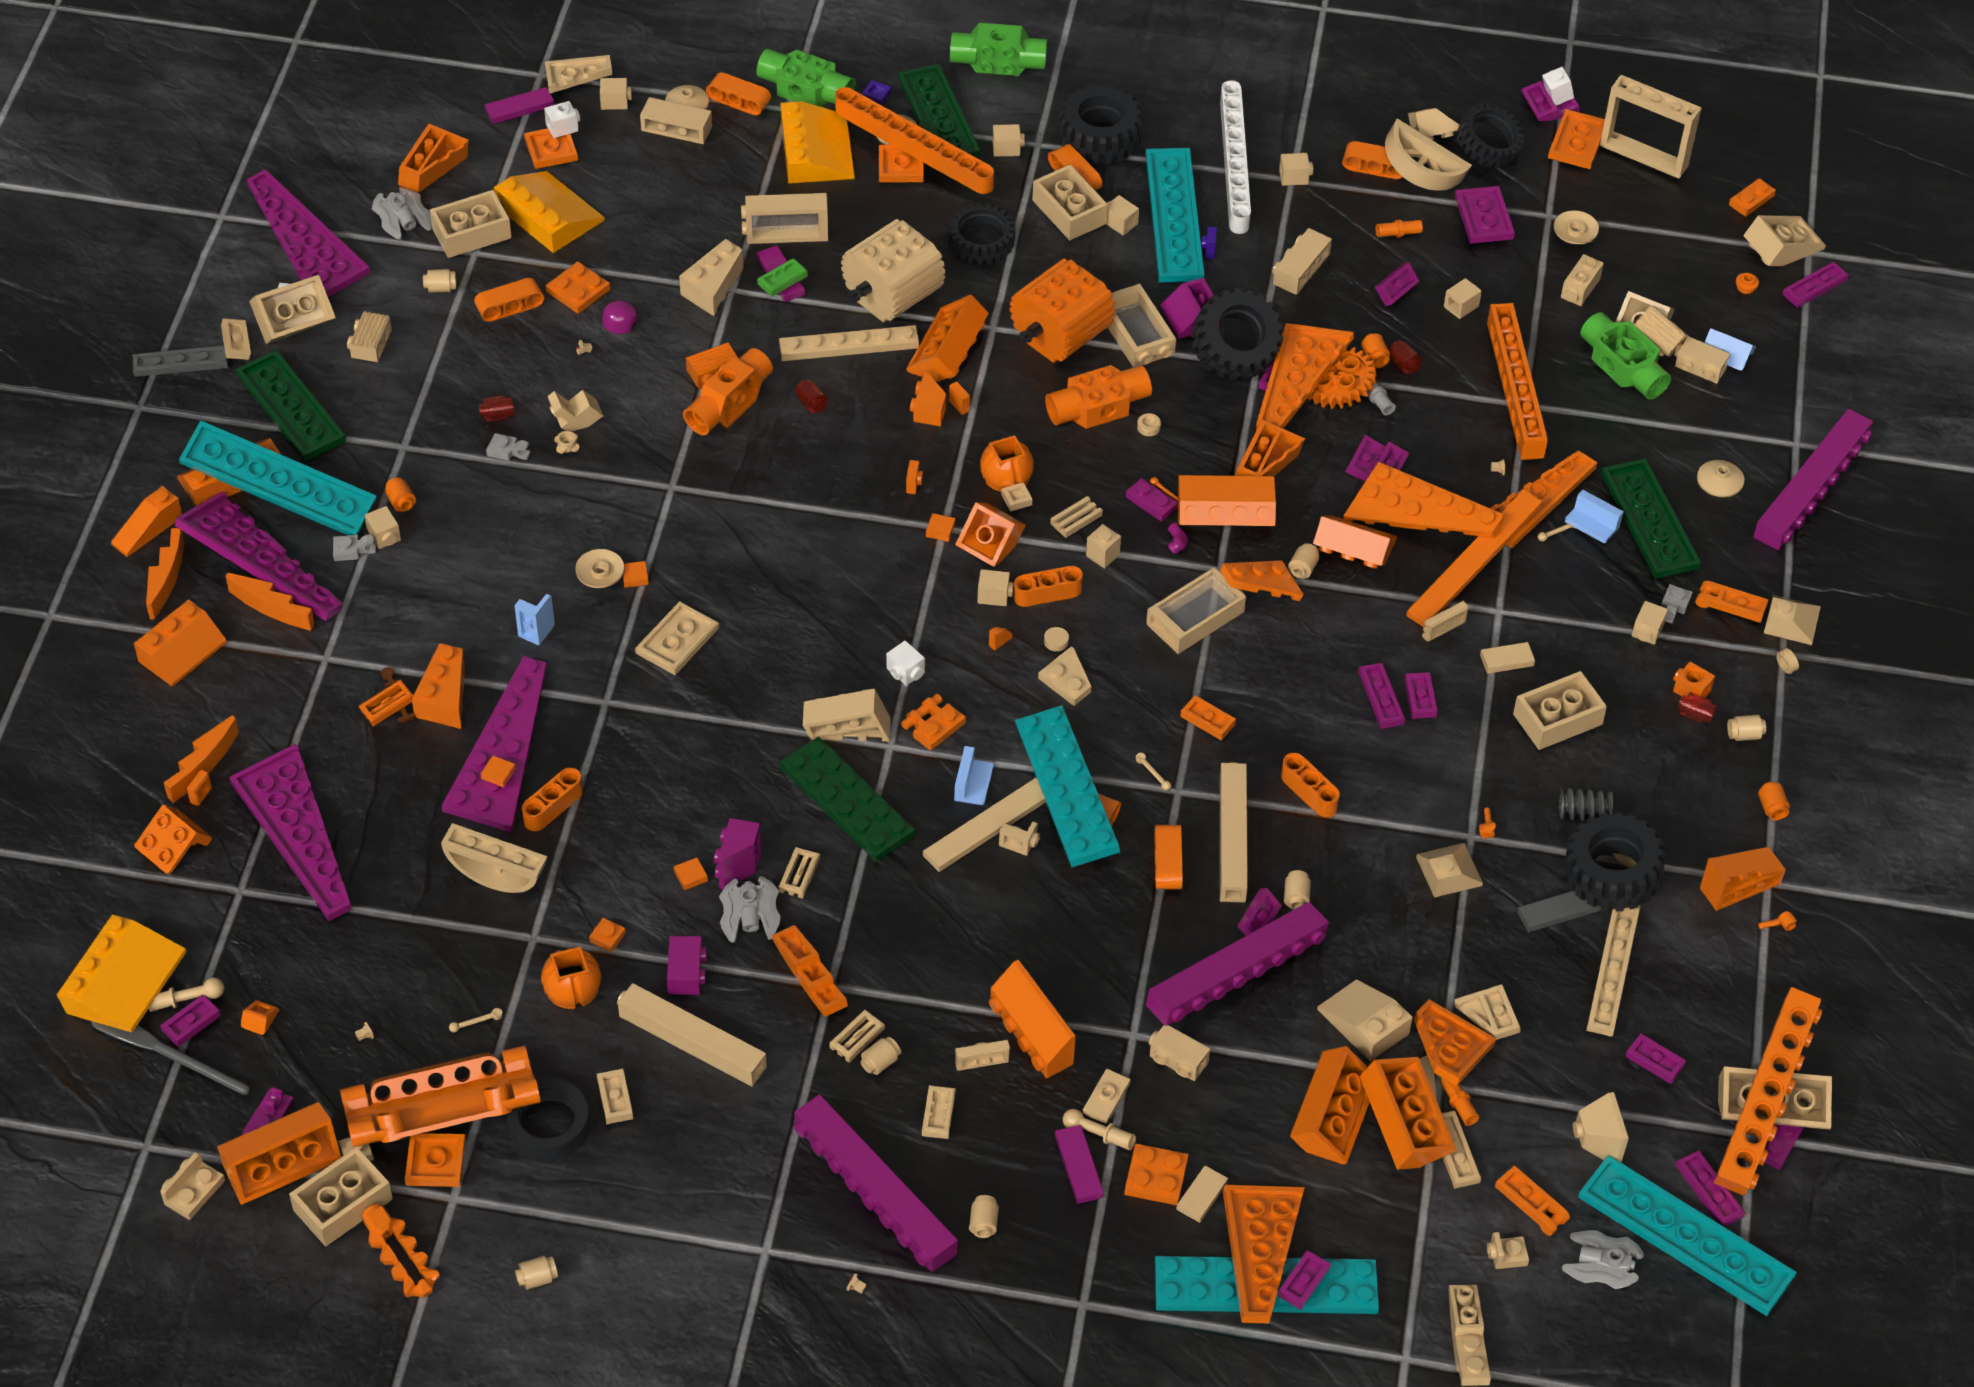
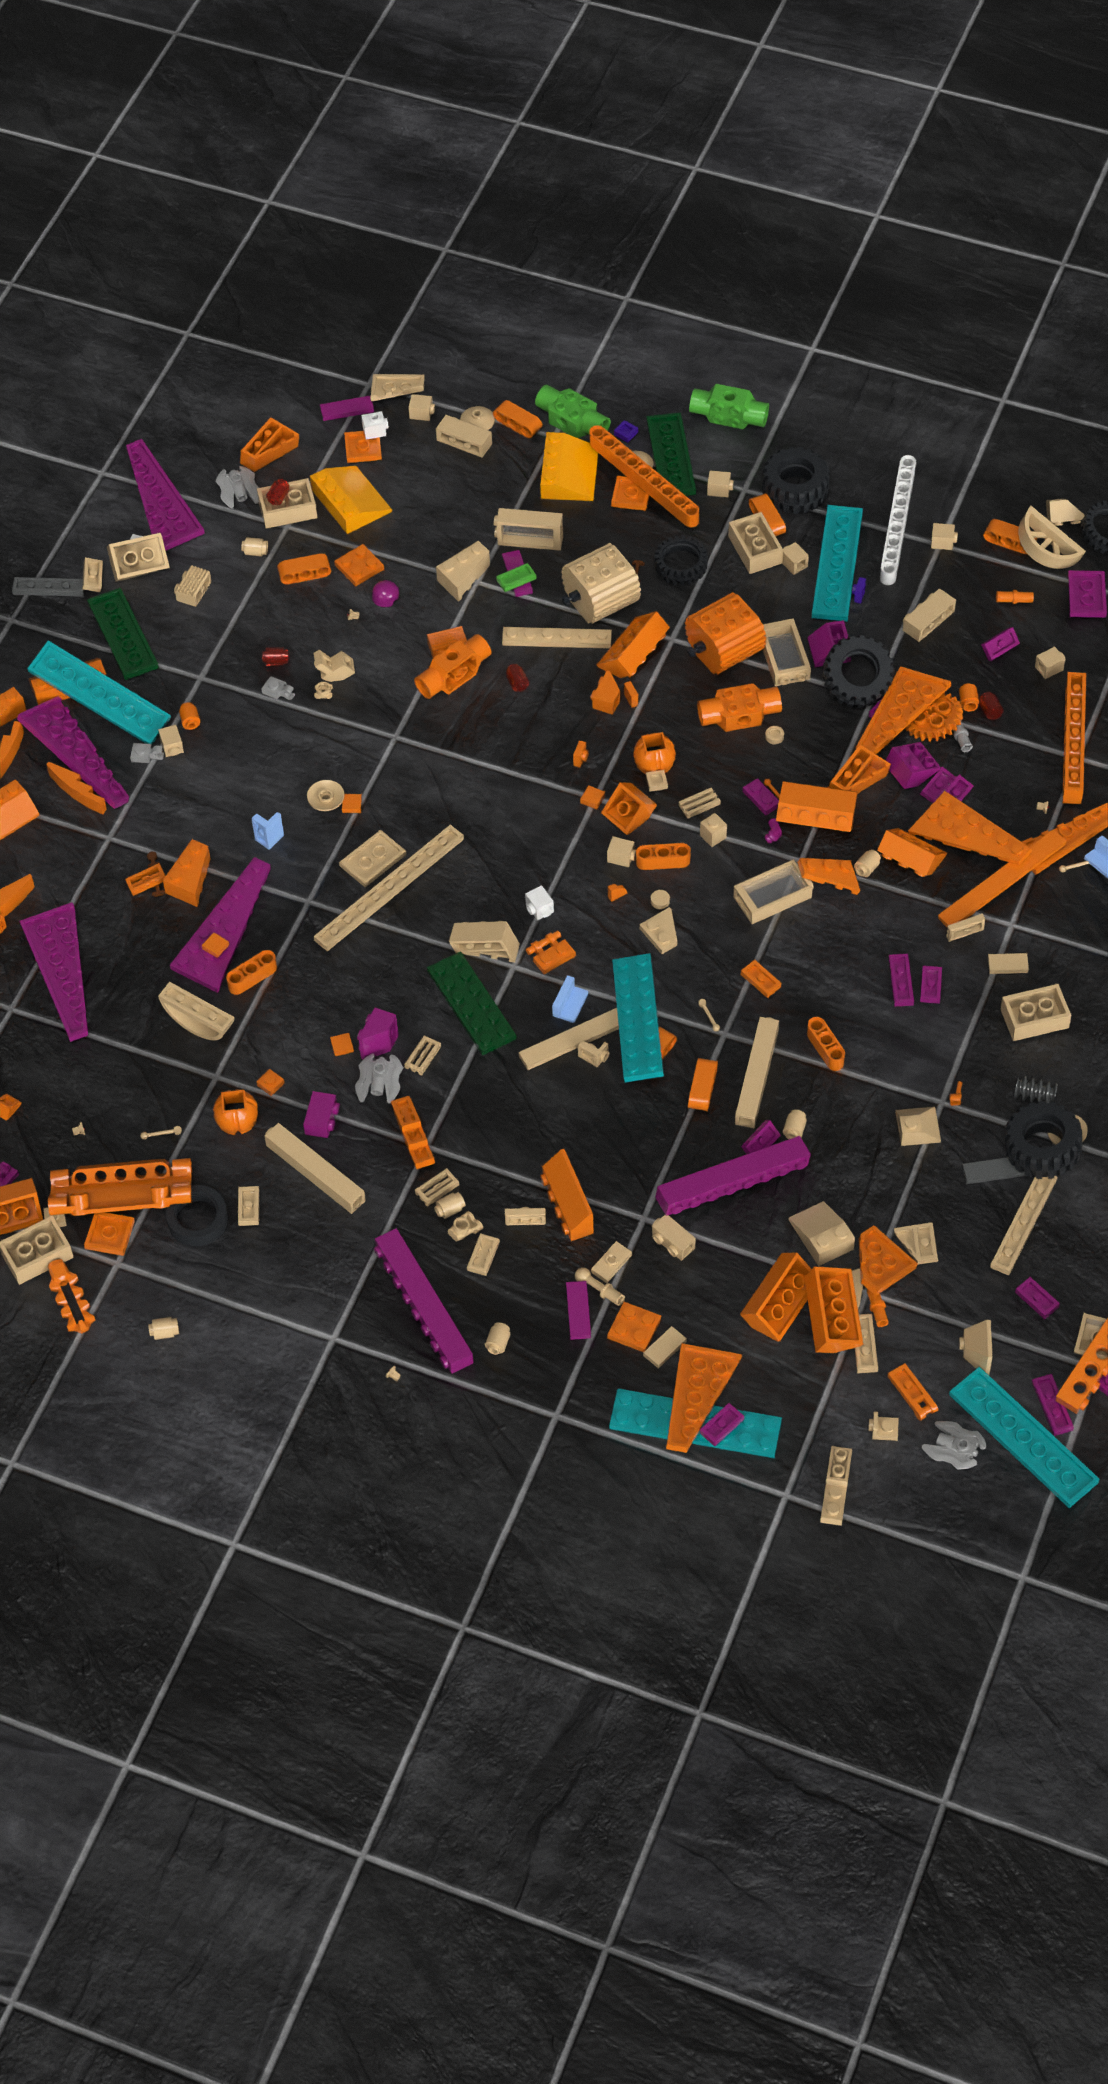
camera: 15 degrees right, 5 degrees up
(459, 209) = (278, 492): none -> clear red brick
(706, 671) = (388, 888): none -> tan plate
(906, 1079) = (464, 1226): none -> tan plate
(1328, 437) = (911, 764): none -> magenta slope

